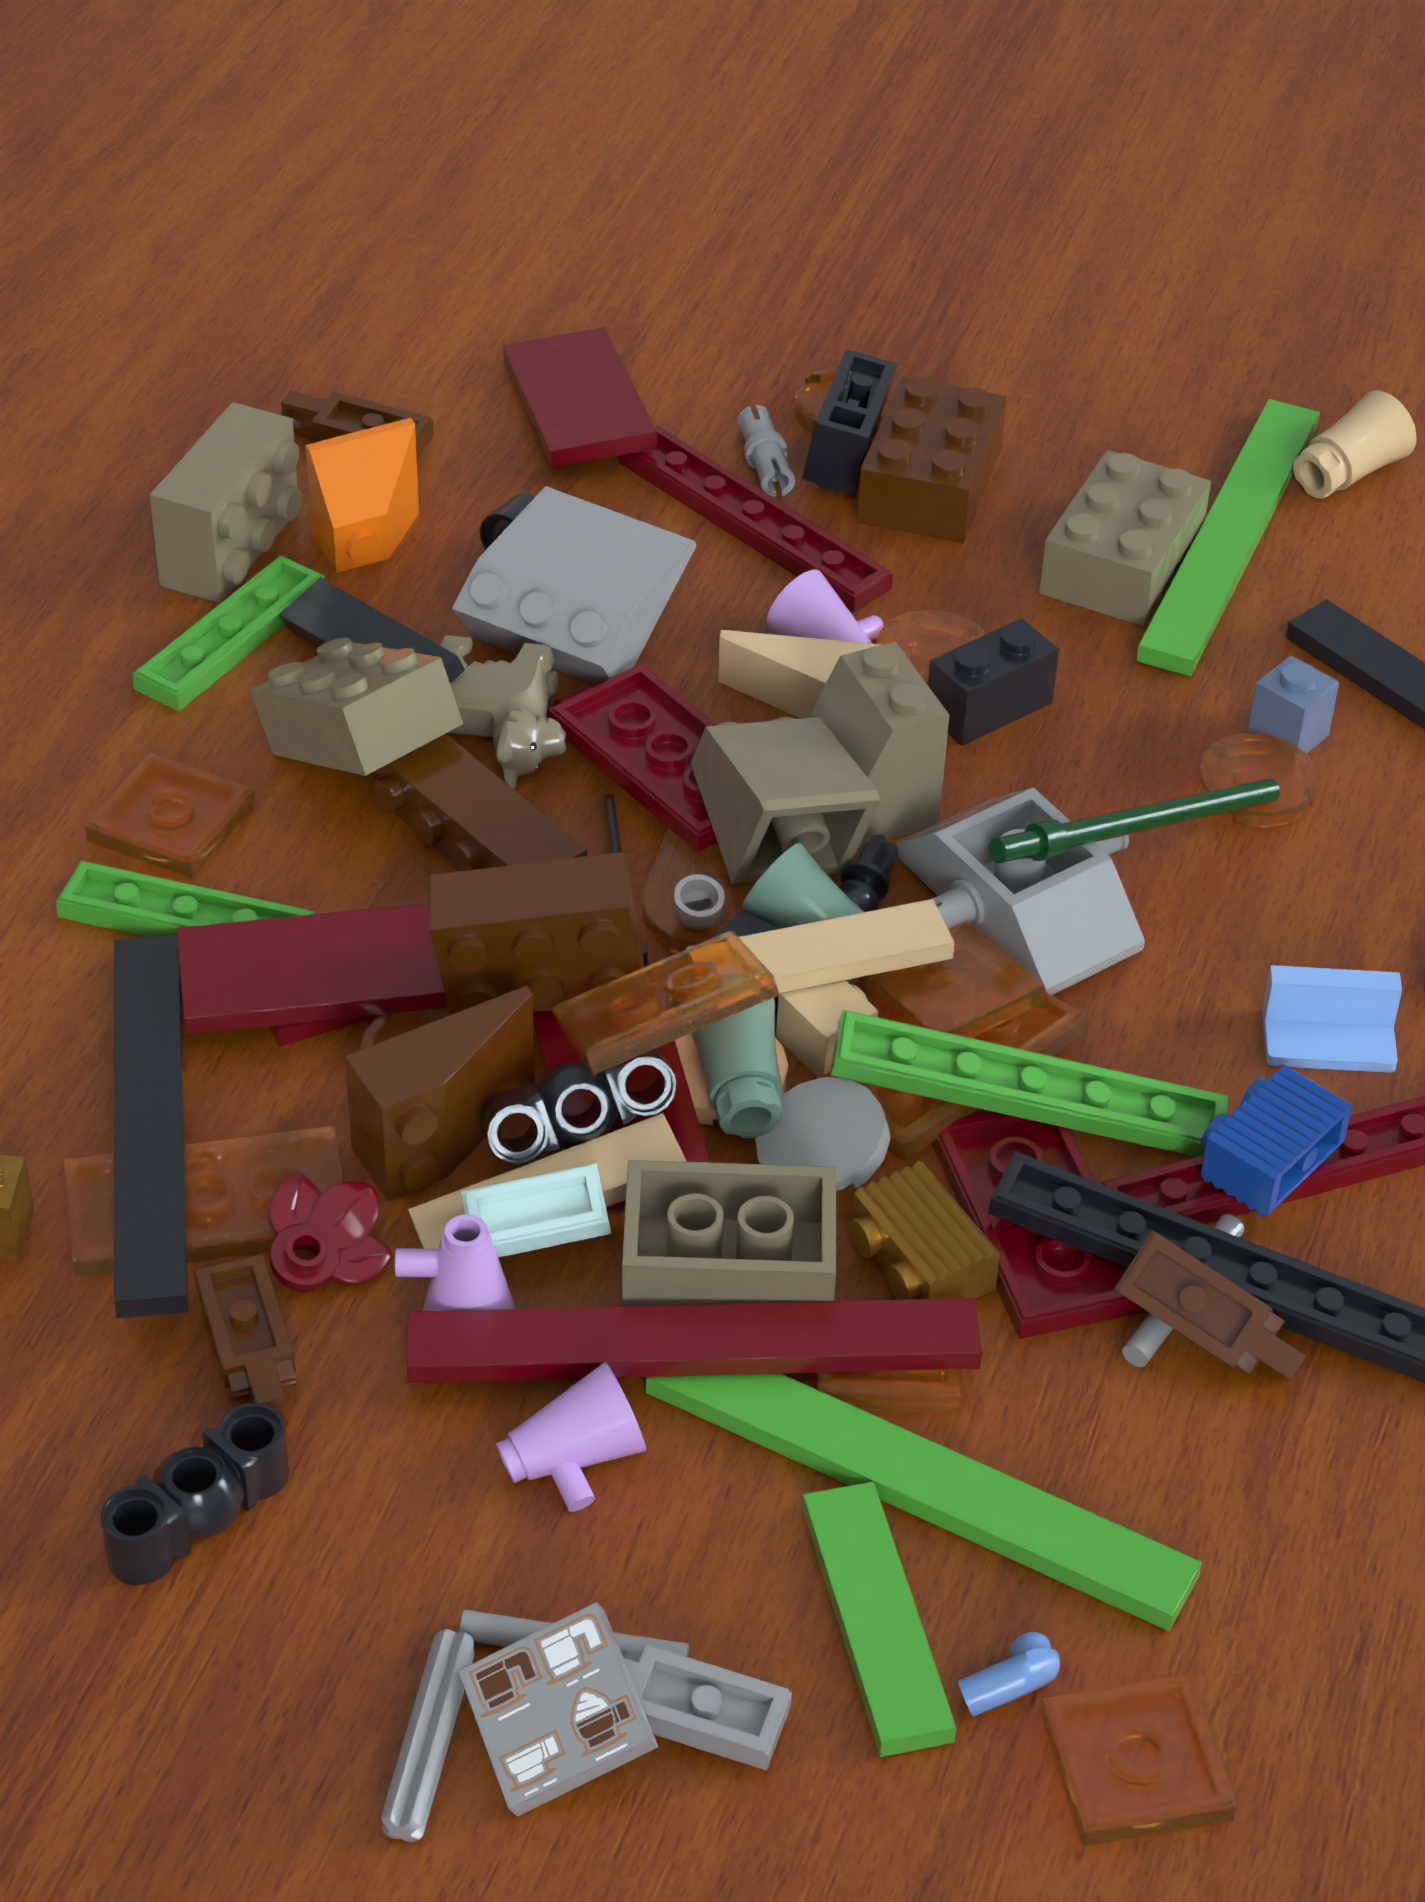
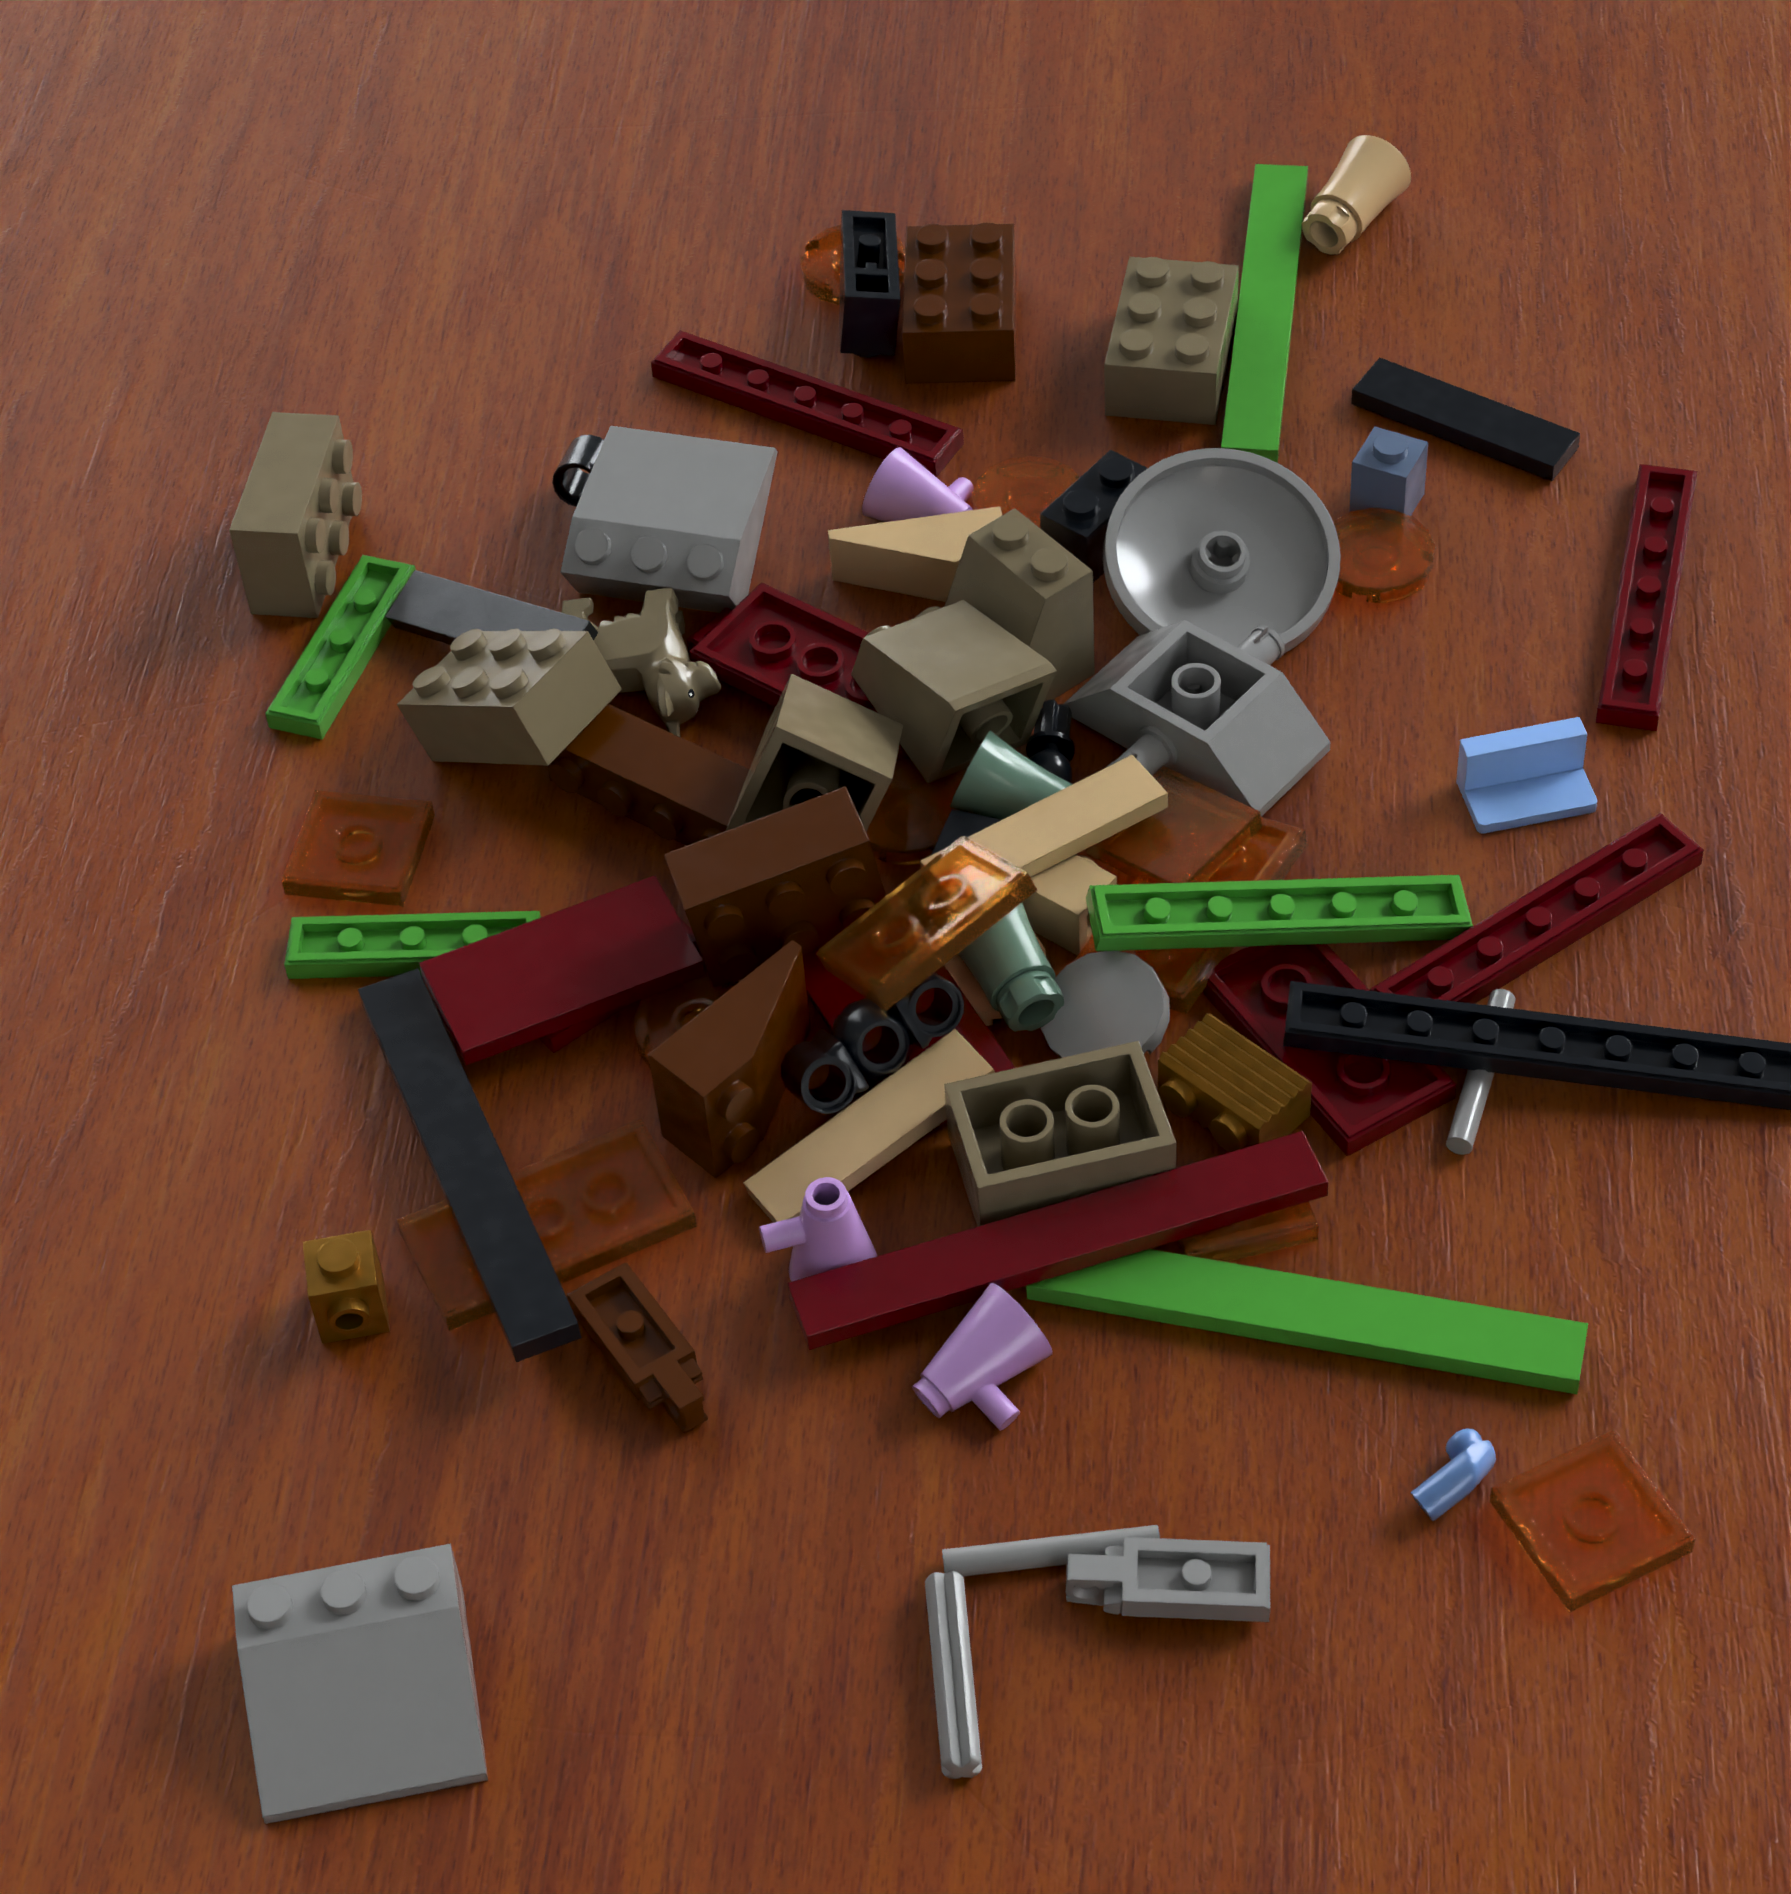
camera: 10 degrees left, 5 degrees up
(195, 1493) = (641, 1535): black piece -> none
(330, 1225) = (679, 1218): dark red plate -> none
(347, 414) = (388, 399): reddish brown hinge -> none
(363, 493) = (424, 474): orange slope -> none
(541, 1210) = (875, 1150): light aqua tile -> none
(557, 1709) = (1067, 1619): light grey tile -> none
(579, 397) = (593, 319): dark red tile -> none
(631, 810) = (816, 747): none -> dark tan slope
(693, 896) = (900, 804): light grey hinge -> none
(766, 451) = (794, 331): light grey pin -> none
(878, 1620) = (1317, 1454): bright green tile -> none
(1051, 838) = (1227, 667): dark green bar -> none
(1097, 729) = (1222, 546): none -> light grey dish
(1207, 1307) = (1513, 1084): reddish brown hinge -> none
(1273, 1139) = (1519, 907): blue brick -> none

